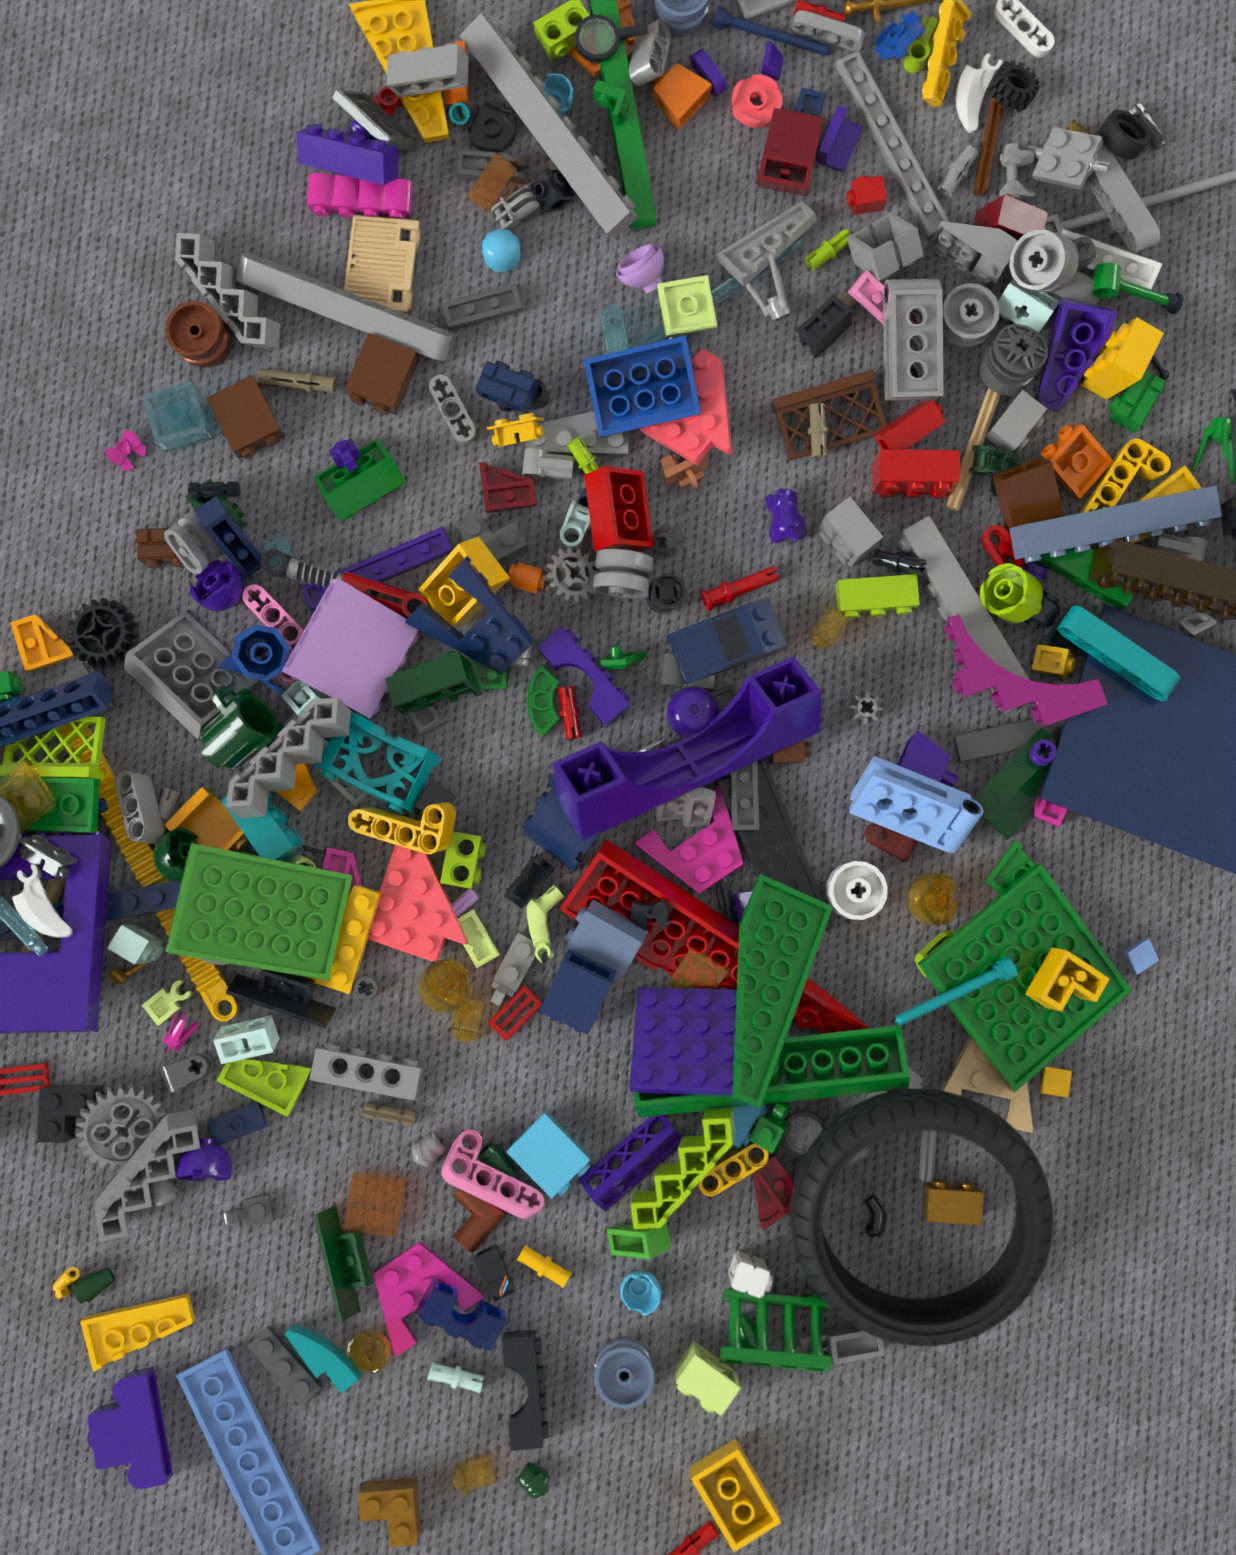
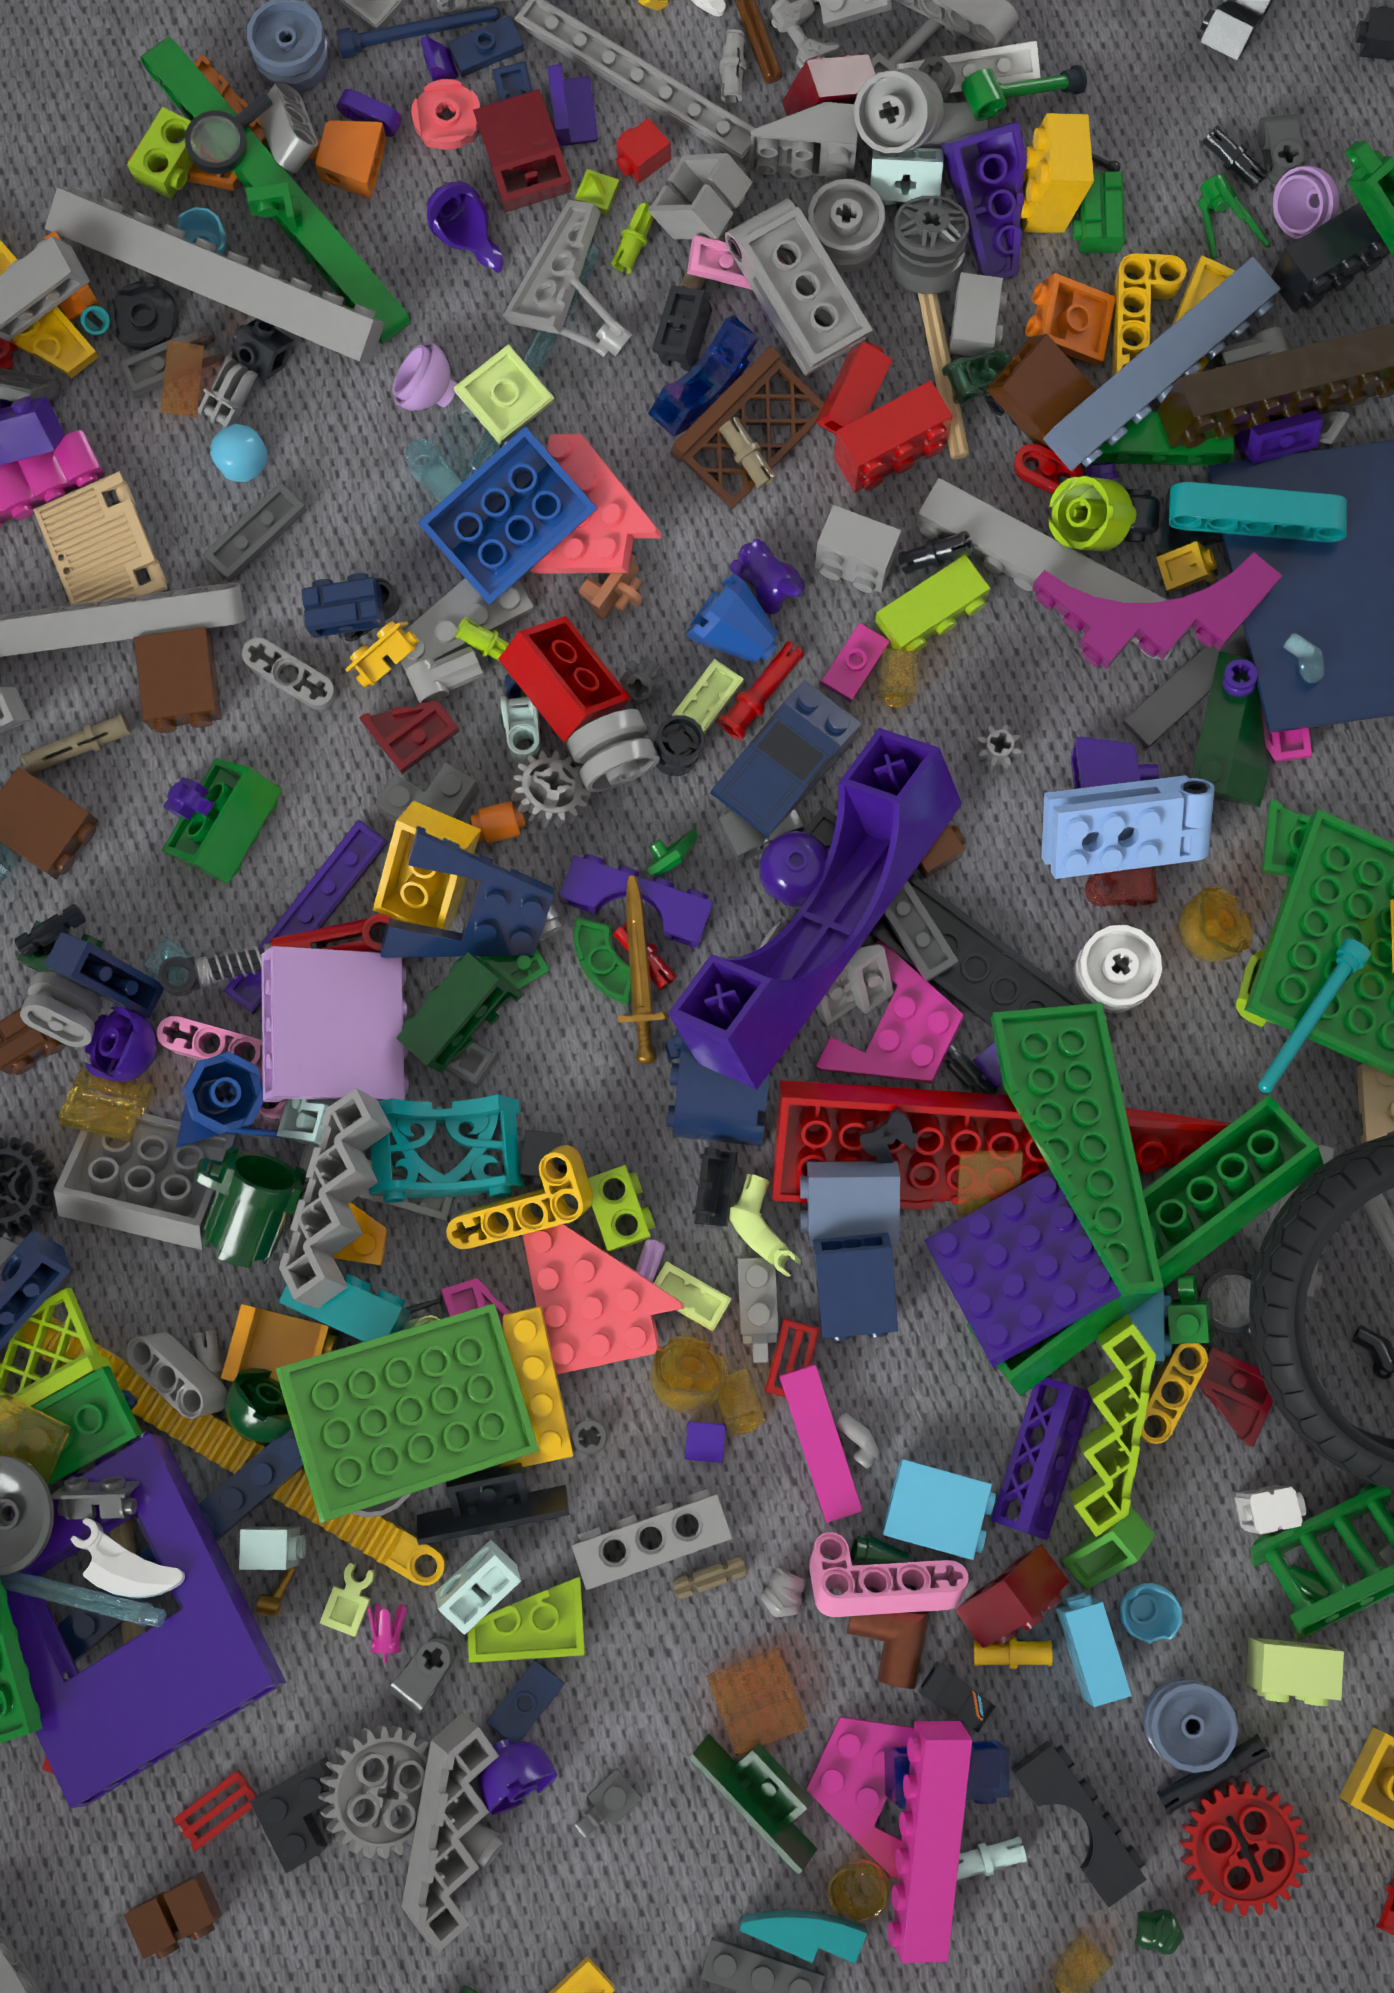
camera: 30 degrees left, 5 degrees down
(185, 621) = (105, 1113): none -> clear yellow plate
(426, 1350) = (930, 1841): none -> dark pink brick
(434, 1031) = (705, 1442): none -> dark purple slope
(502, 1073) = (820, 1443): none -> dark pink tile
(529, 1084) = (862, 1437): none -> light grey arm
(558, 724) = (639, 975): none -> pearl gold sword
(563, 1235) = (1014, 1598): none -> dark red brick
(589, 1461) = (1273, 1831): none -> red gear
(591, 1294) = (1092, 1649): none -> medium azure brick
(600, 1408) = (1199, 1783): none -> black pin
(704, 572) = (710, 694): none -> yellowish green plate
(725, 177) = (462, 221): none -> dark purple piece
(746, 535) = (734, 623): none -> blue cone
(808, 69) = (486, 46): none -> dark blue plate
(808, 603) = (855, 662): none -> dark pink plate
(809, 372) = (716, 371): none -> clear blue arch
(824, 205) = (598, 190): none -> lime tile
(1094, 765) = (1309, 657): none -> clear light blue arm
(1163, 612) = (1280, 437): none -> dark purple panel

